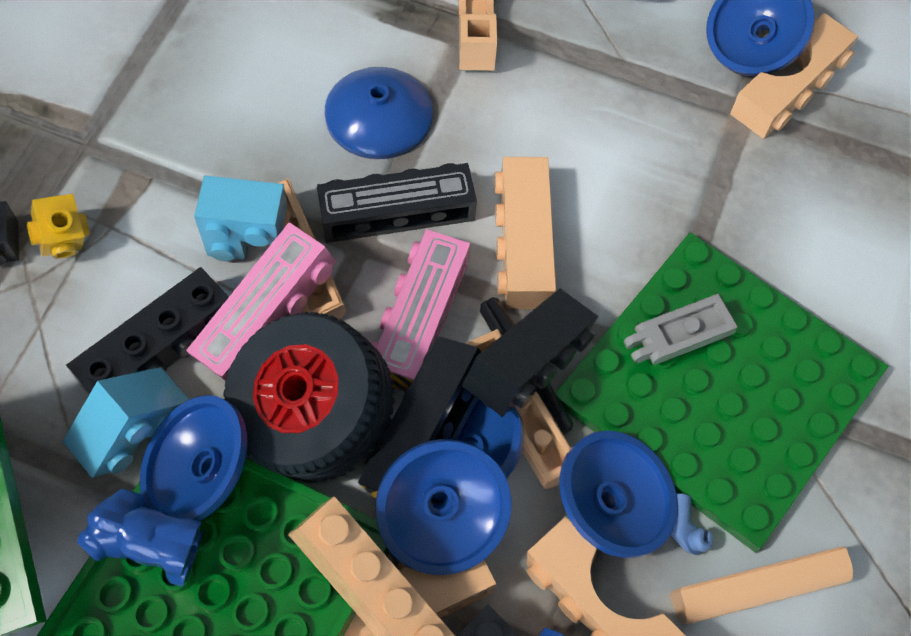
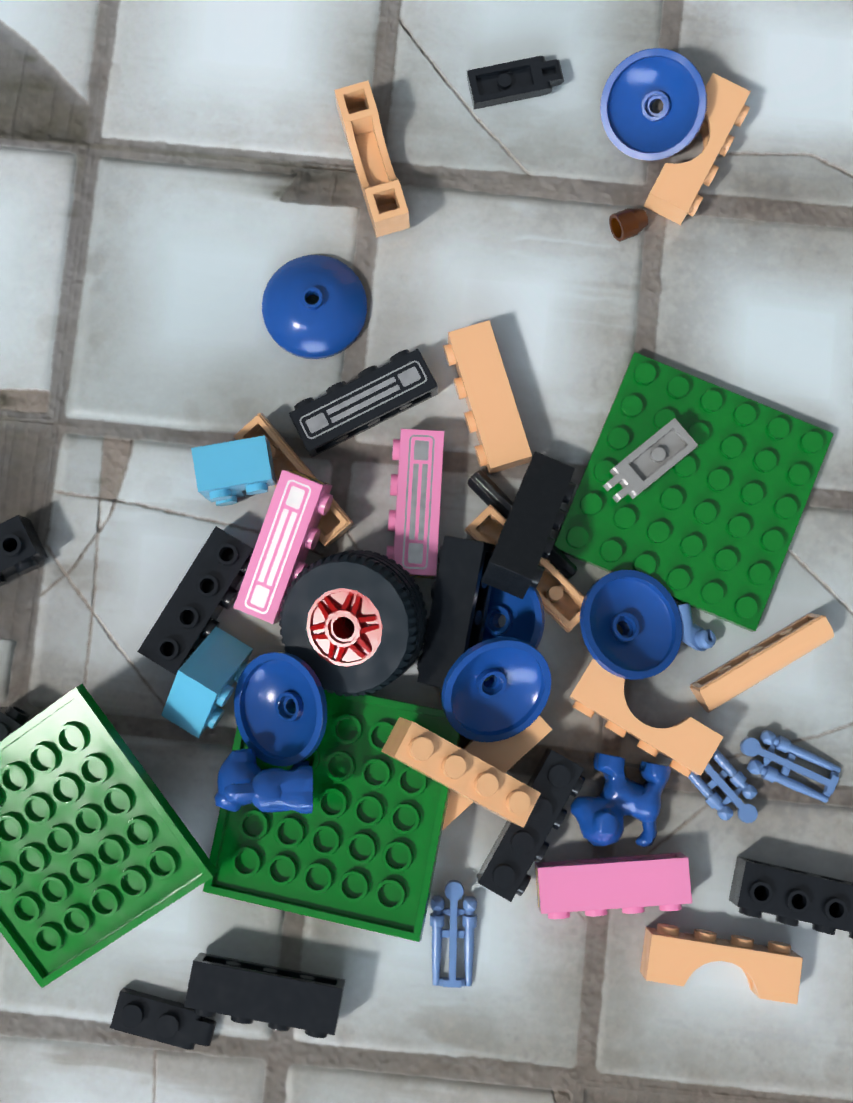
camera: 10 degrees left, 20 degrees up
(57, 226) = (59, 522): yellow brick -> none
(710, 120) = (627, 223): none -> reddish brown hose

